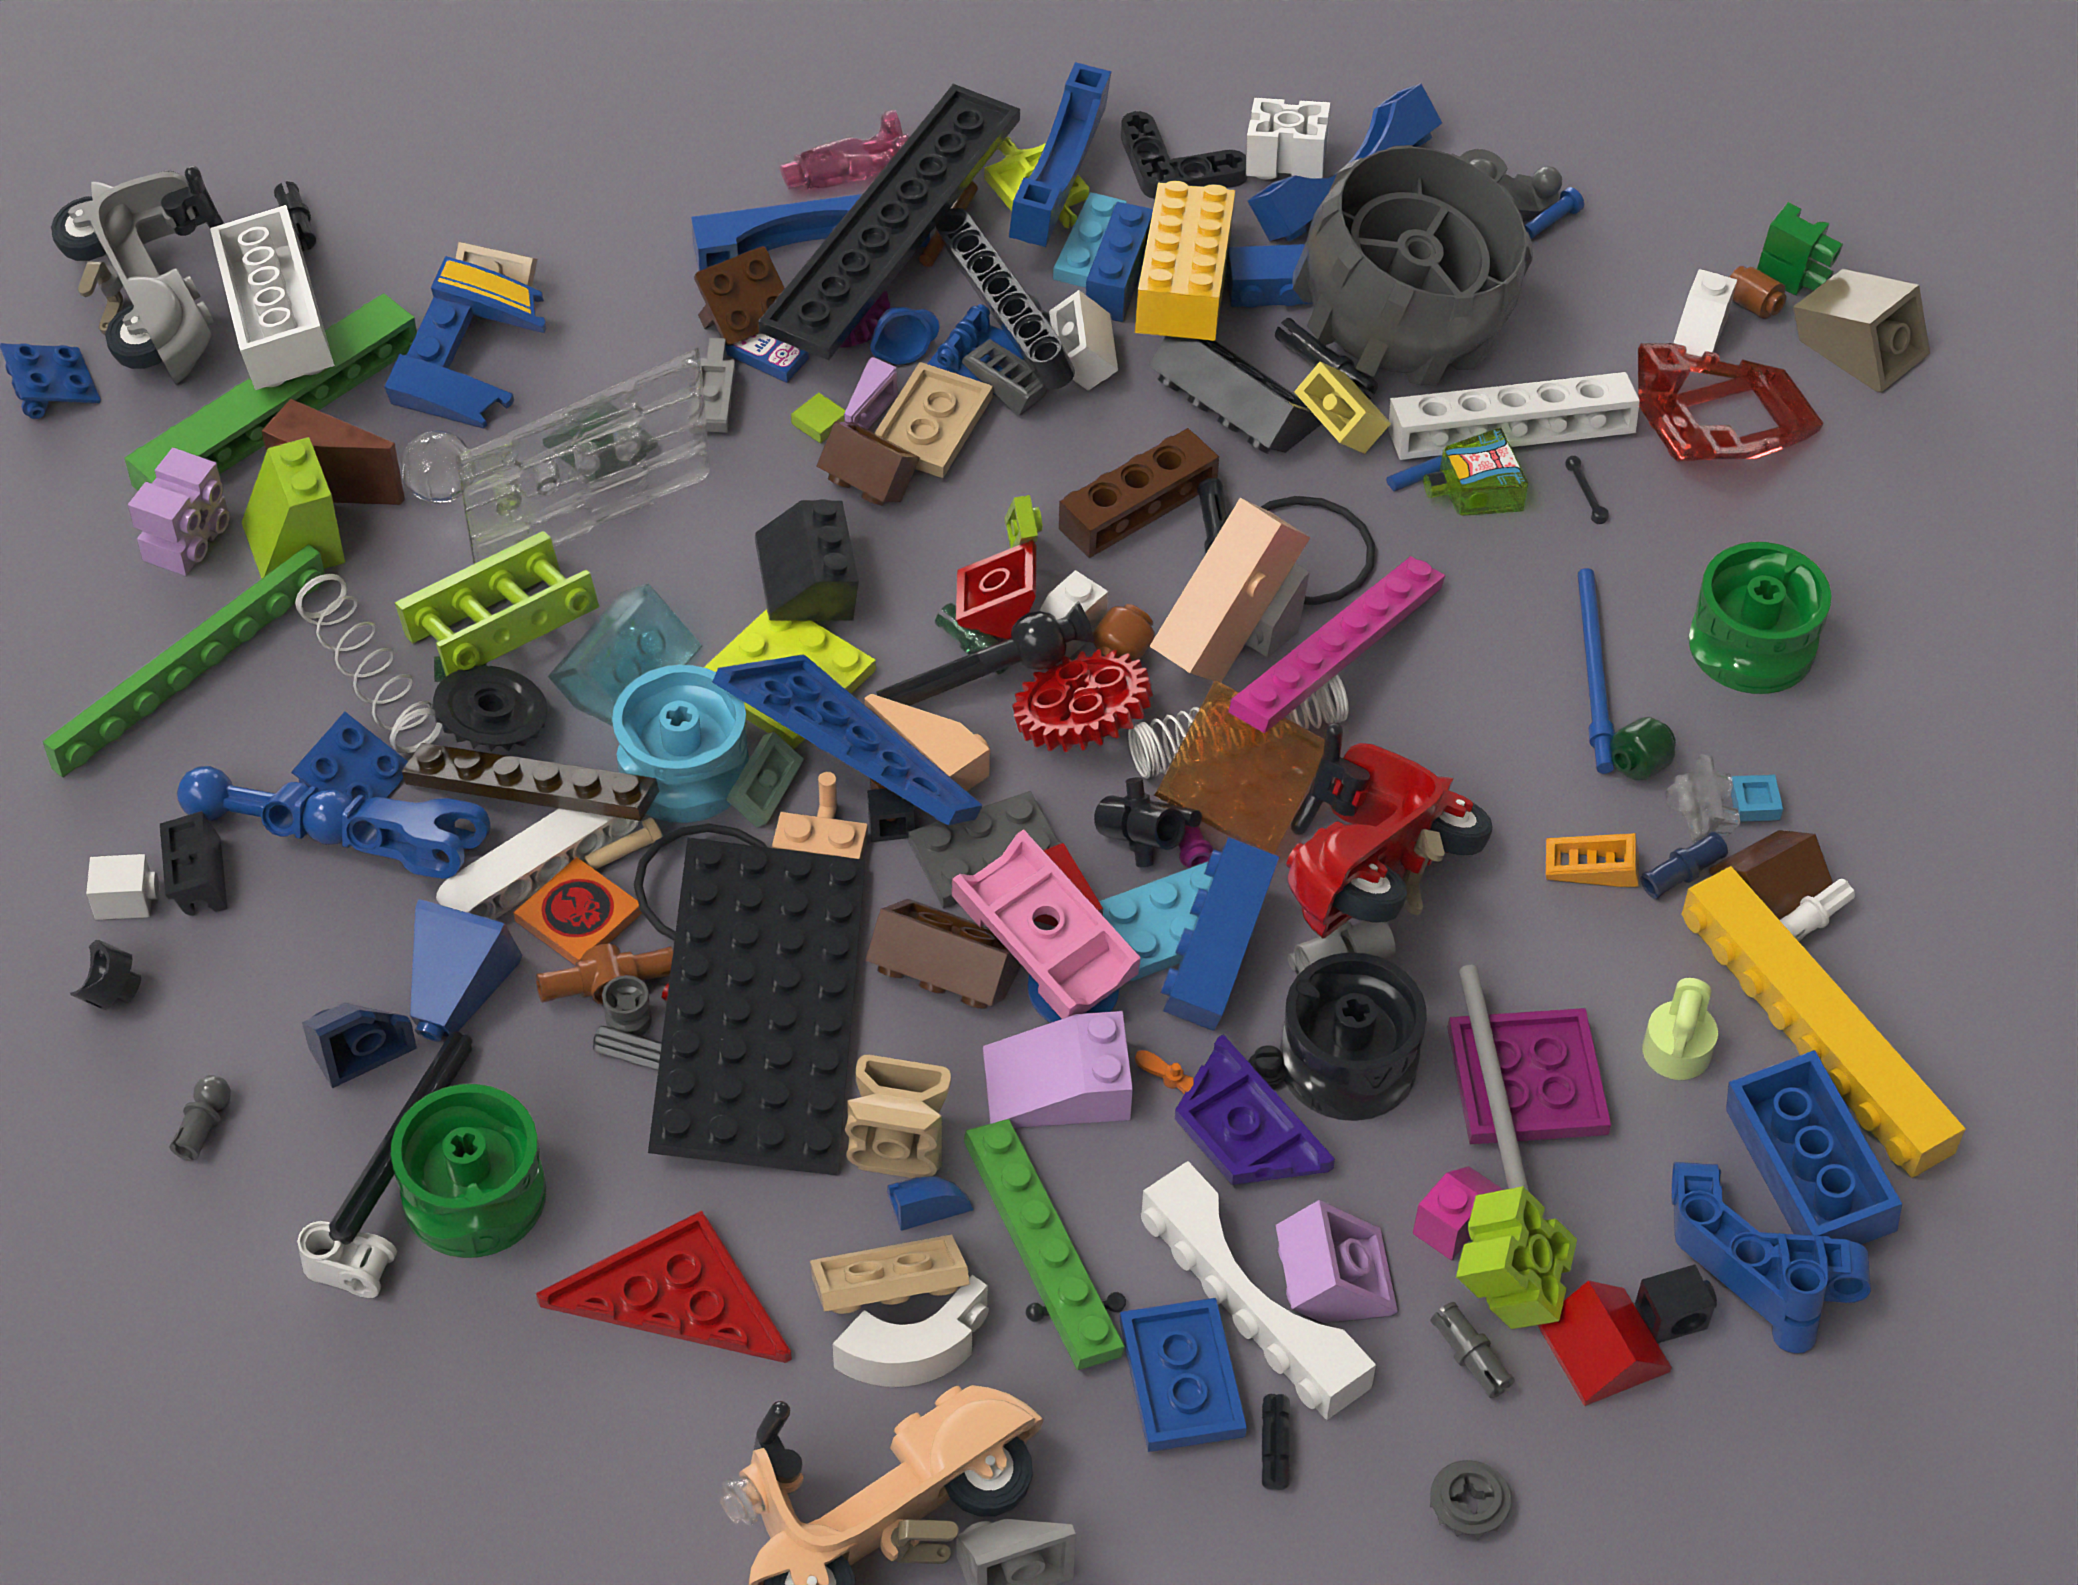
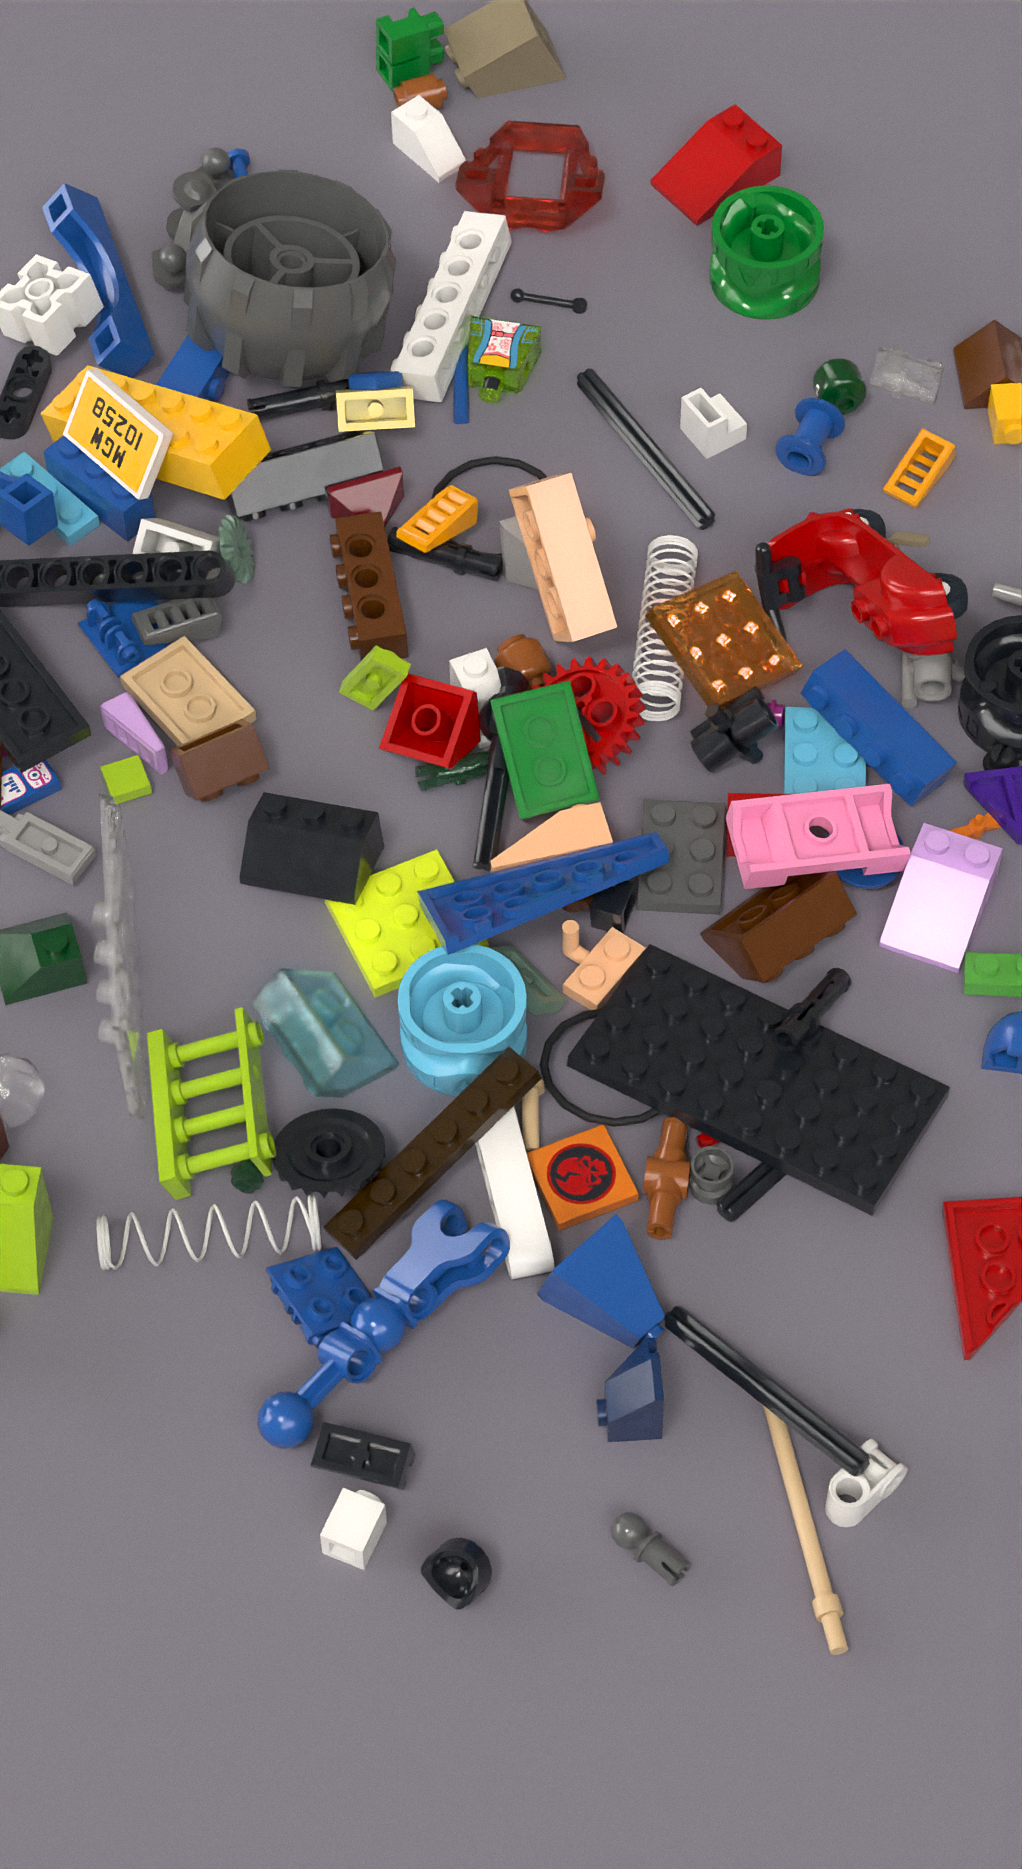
camera: 60 degrees left, 5 degrees up
(182, 662) = (117, 1397): bright green plate -> none
(204, 1282) = (826, 1603): none -> tan bar
(469, 1170) = (838, 1344): green piece -> none
(837, 1004) = (805, 1017): none -> black pin
(897, 1118) = (944, 1018): tan piece -> none
(903, 334) = (78, 673): blue piece -> none
(1013, 678) = (544, 750): none -> green tile
(1096, 375) = (235, 548): none -> sand green gear
(1145, 225) = (118, 433): none -> tile
(1231, 493) = (442, 518): none -> light orange slope
(1242, 451) = (367, 495): none -> slope
(1336, 644) = (639, 521): dark pink plate -> none
(1370, 391) = (375, 380): none -> blue tile
(1455, 632) = (646, 449): none -> black axle
(1520, 667) = (711, 422): none -> white piece
(1559, 748) = (817, 422): none -> blue hose
(1600, 729) = (717, 373): blue bar -> none
(1684, 865) = (958, 416): dark blue pin -> none
(1756, 797) = (922, 341): dark azure plate -> none
(1860, 545) = (717, 162): none -> red slope

